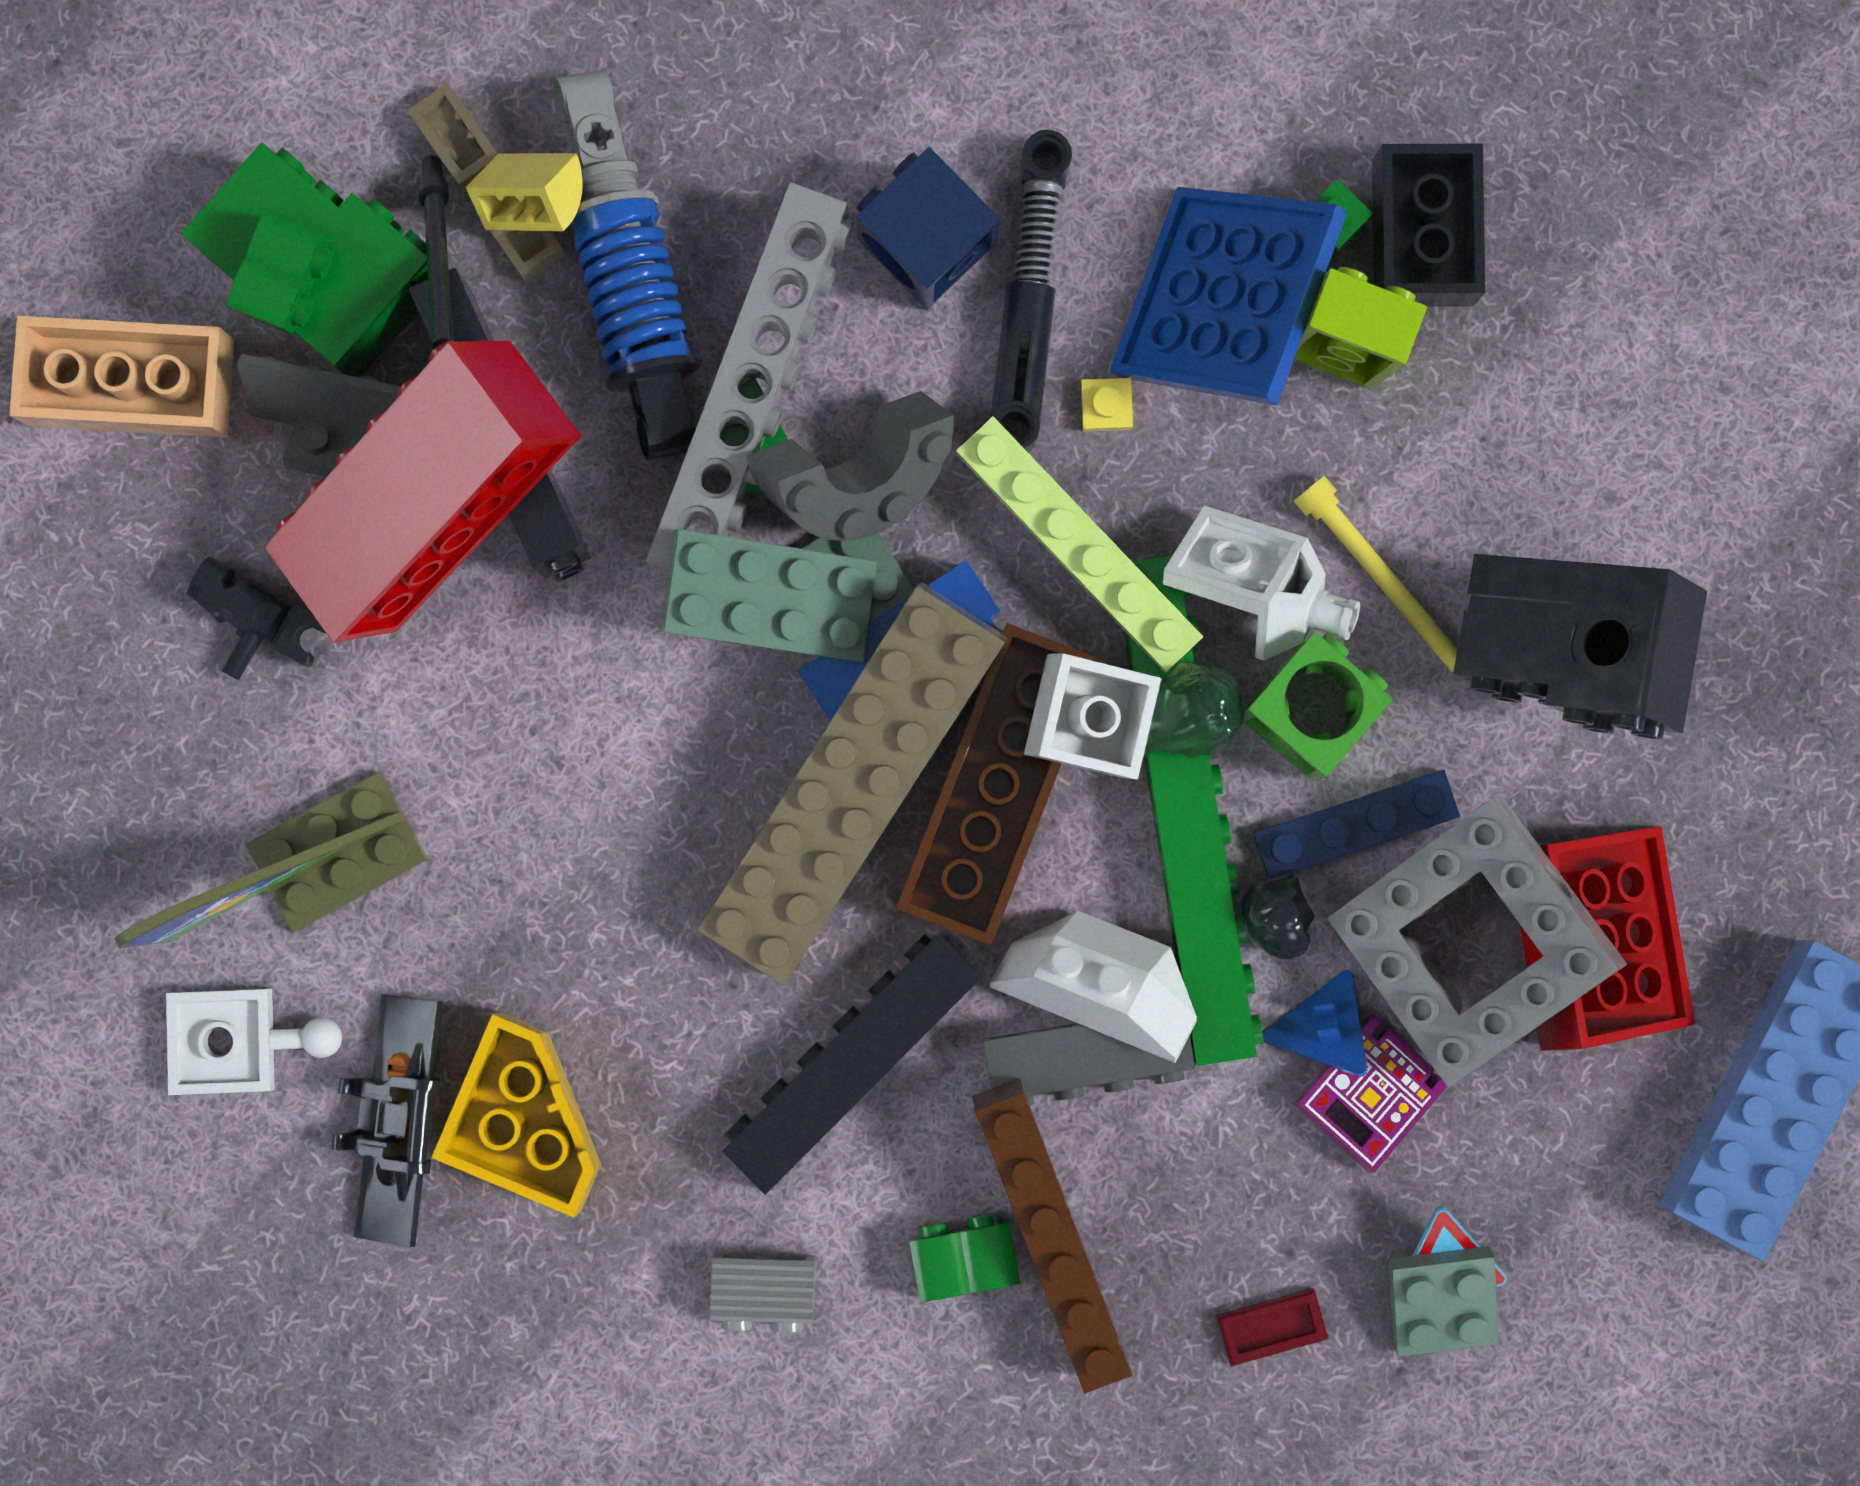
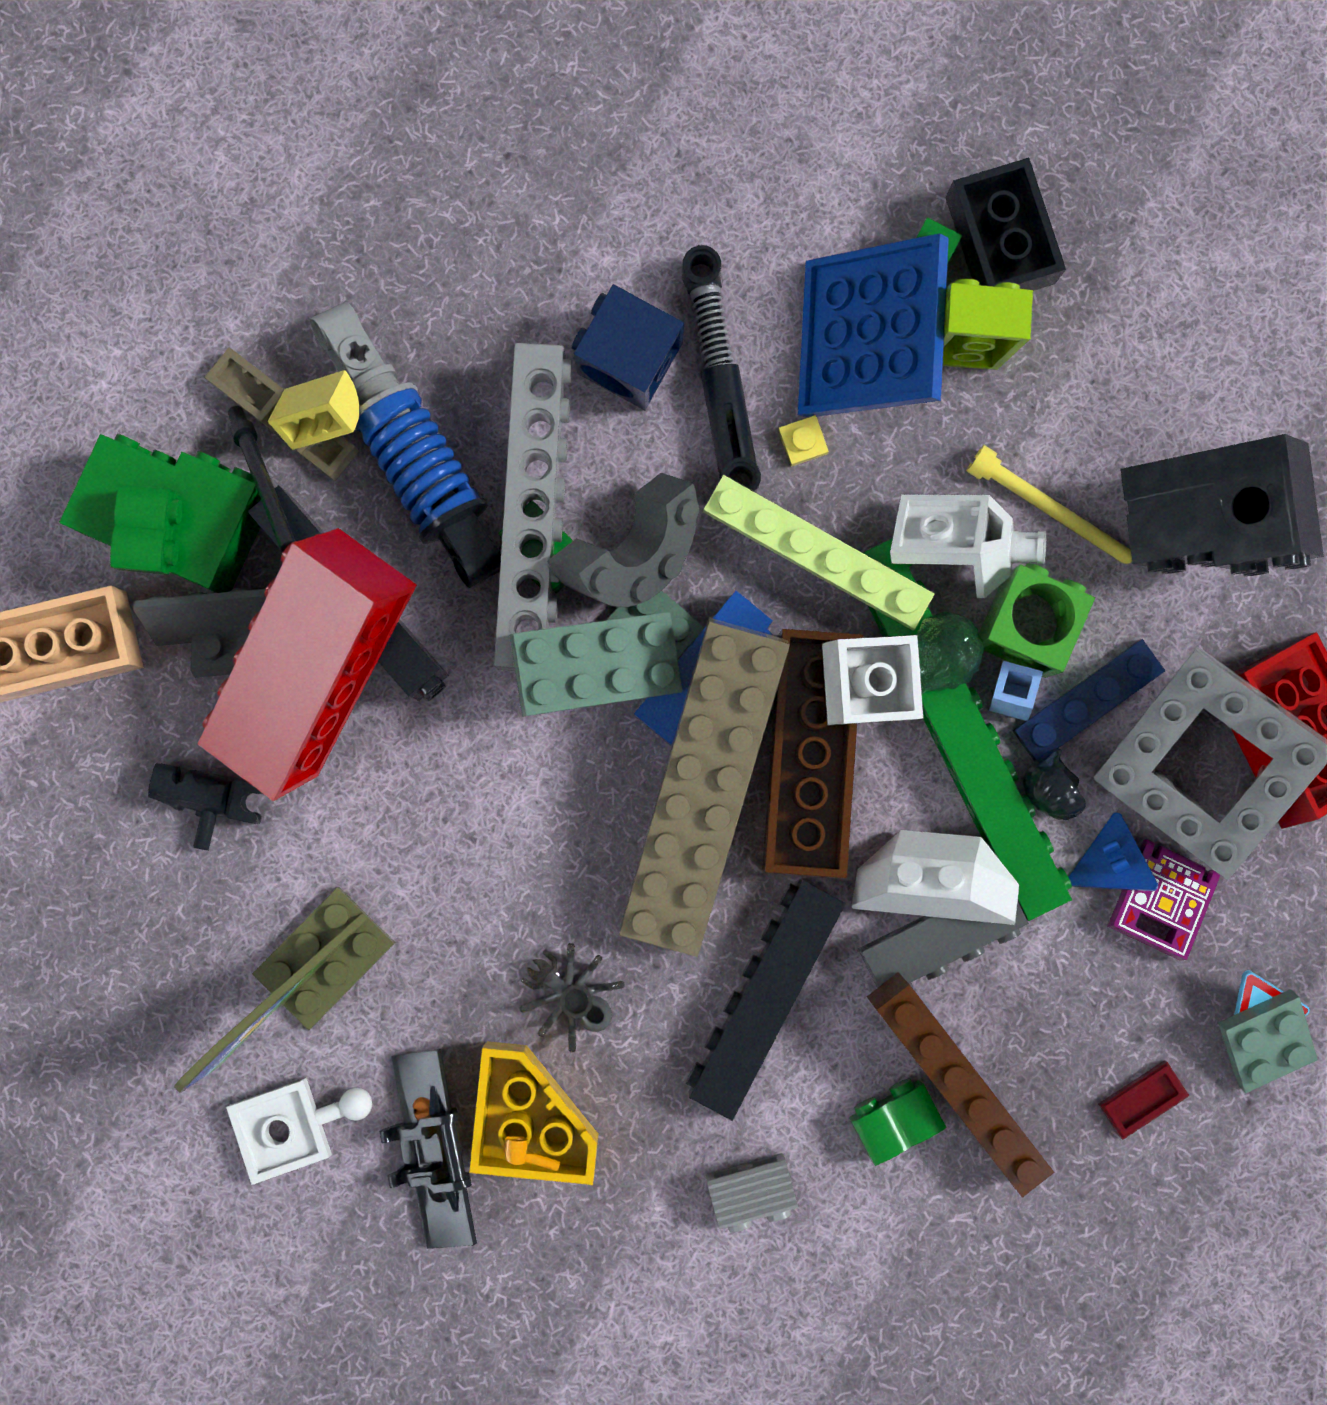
camera: 20 degrees left, 0 degrees up
(494, 1150) = (516, 1153): none -> light orange hand
(621, 992) = (575, 999): none -> animal
(1267, 784) = (1015, 691): none -> light blue brick

